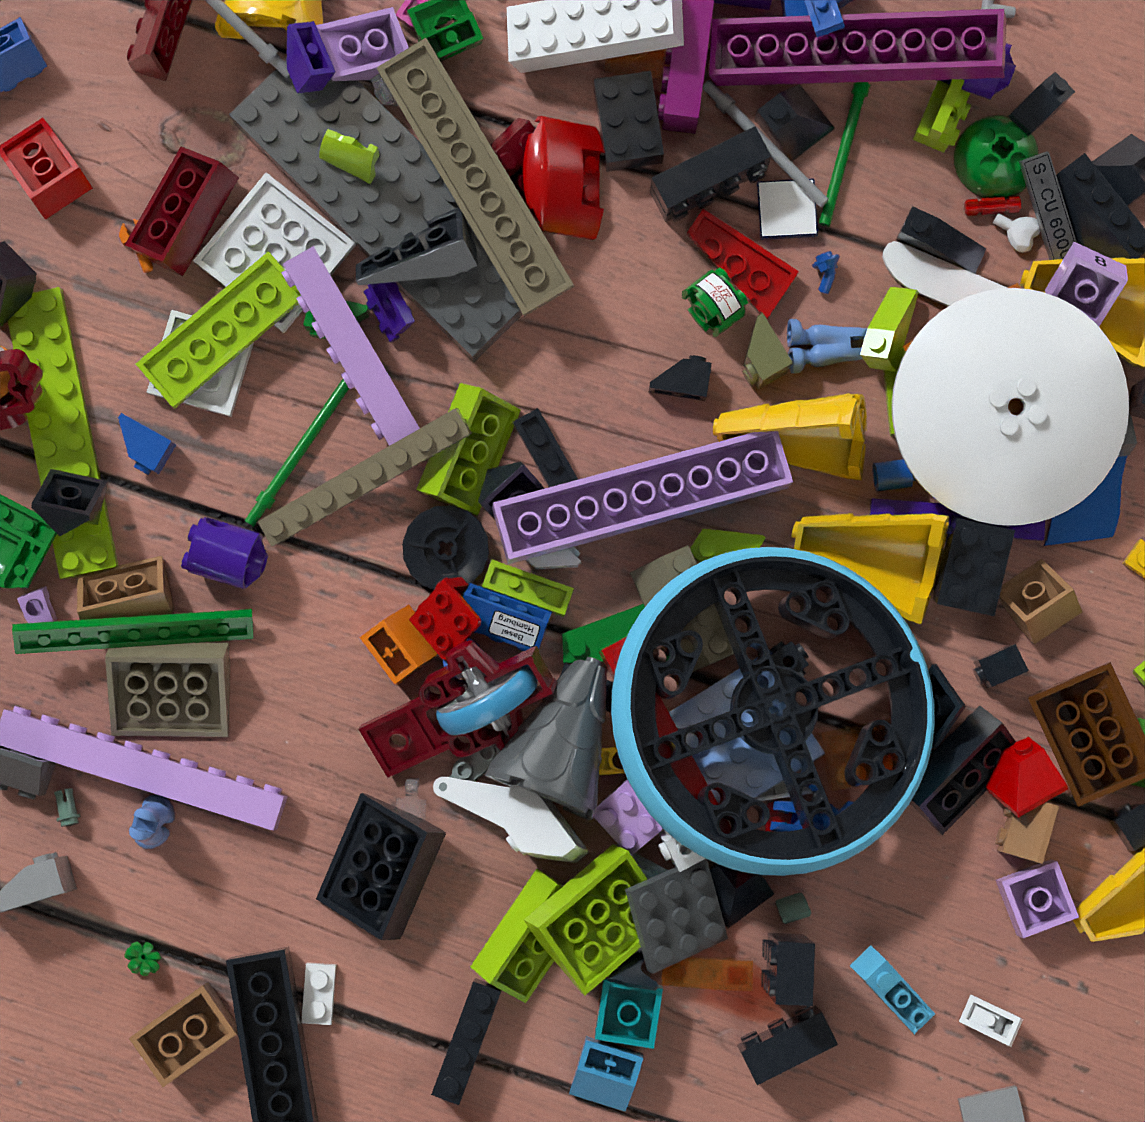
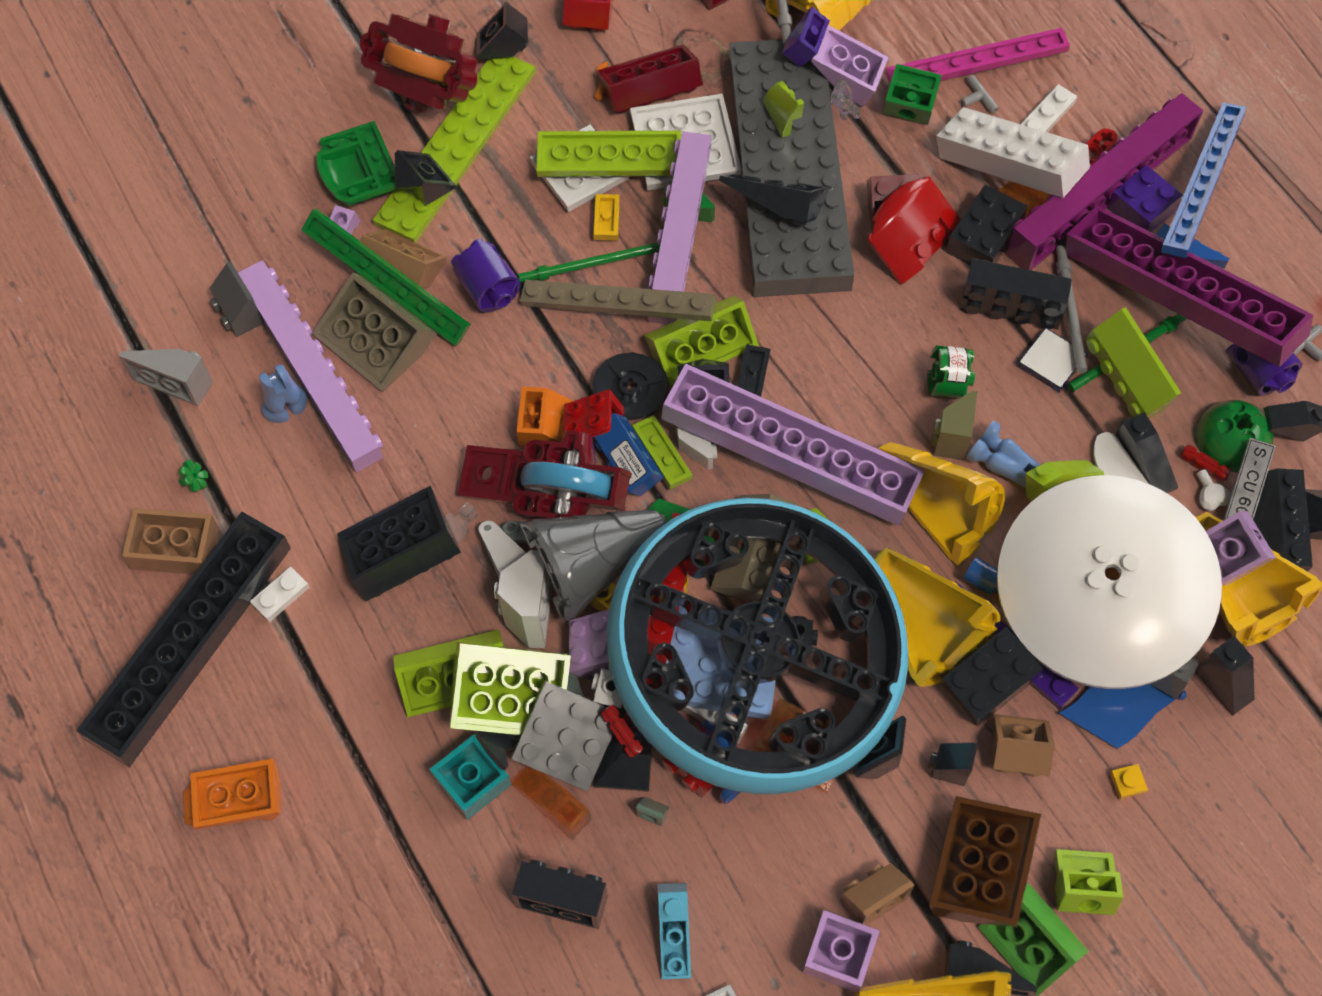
camera: 40 degrees right, 20 degrees down
(67, 810) = (237, 356): sand green pin -> none
(145, 445) = (499, 186): blue slope -> none
(273, 394) = (606, 216): none -> yellow plate
(389, 309) = (728, 218): dark purple plate -> none
(466, 1041) = (343, 704): black brick -> none
(475, 177) = (852, 180): dark tan plate -> none
(606, 1073) = (415, 807): dark azure slope -> none
(685, 379) = (886, 406): black slope -> none
(723, 875) = (622, 731): none -> red axle
(748, 265) = (993, 368): red wing -> none
(789, 968) = (610, 829): black brick -> none
(793, 122) = (1097, 302): black slope -> none
(827, 264) = (1052, 410): blue plate -> none
(867, 168) = (1132, 365): none -> lime slope
(942, 115) = (1225, 370): lime brick -> none
(961, 769) = (863, 815): black slope -> none
(1025, 777) = (907, 851): red slope -> none

